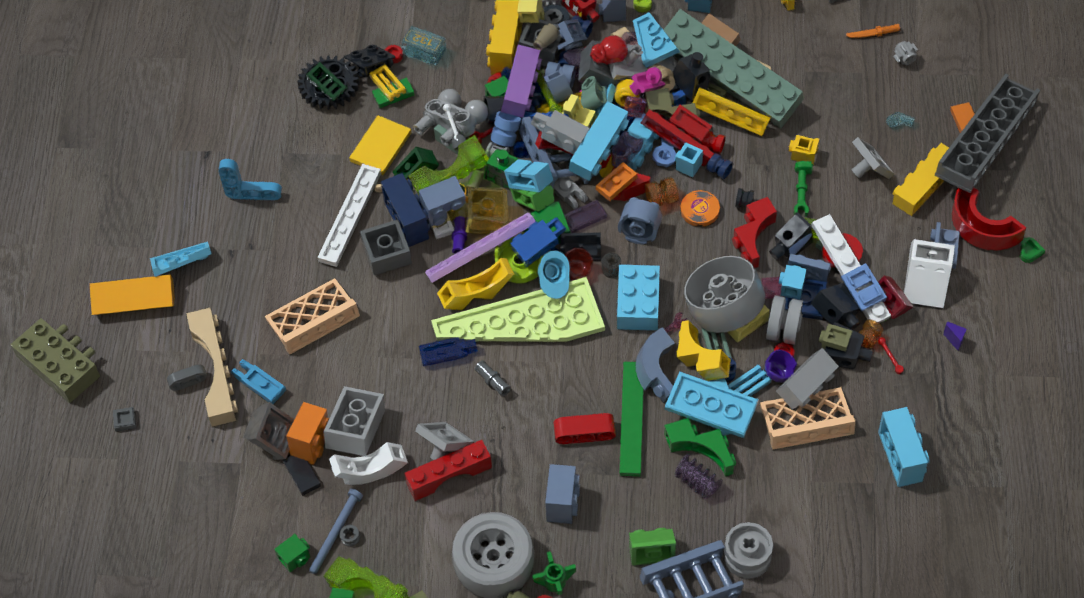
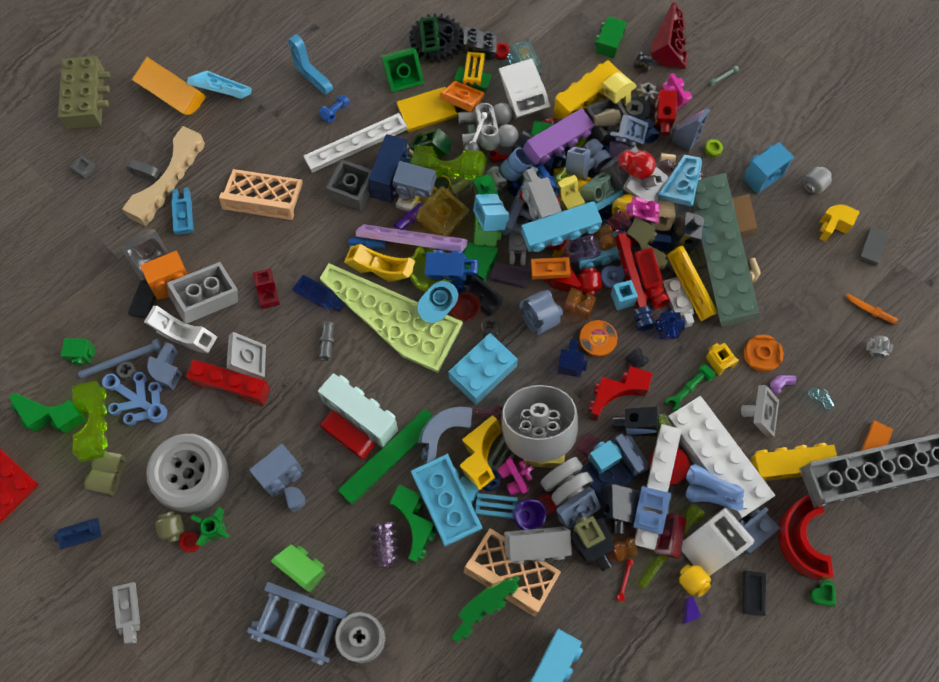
camera: 40 degrees right, 10 degrees up
(300, 211) = (328, 114): none -> blue bar
(326, 128) = (402, 69): none -> green slope
(383, 508) = (161, 368): none -> sand blue brick
(384, 547) = (137, 400): none -> medium blue plant
(397, 381) = (266, 288): none -> dark red slope
(402, 110) = (462, 96): none -> orange tile
(432, 290) = (369, 243): none -> blue axle
(450, 66) = (524, 88): none -> white slope
(577, 398) = (359, 410): none -> light aqua brick
(593, 505) = (294, 498): none -> sand blue brick
(636, 127) = (605, 237): none -> clear orange wheel
(652, 168) = (590, 281): none -> red head
(698, 239) = (571, 361): none -> clear blue brick
(734, 134) = (679, 300): none -> white hinge
(744, 155) = (670, 325): none -> clear blue brick
(744, 345) = (519, 484): none -> dark pink hips
(810, 331) = (579, 506): none -> sand blue bracket
(813, 441) = (488, 600): none -> green slope
(829, 123) = (763, 353): none -> orange tile
(862, 130) = (781, 380): none -> medium lavender arm
(874, 217) = (716, 451): none -> white brick
(893, 270) = (693, 515): none -> clear neon green piece
(900, 234) = (709, 488): none -> medium blue piece
(938, 312) = (695, 580): none -> yellow head
(985, 288) = (754, 593): none -> black tile

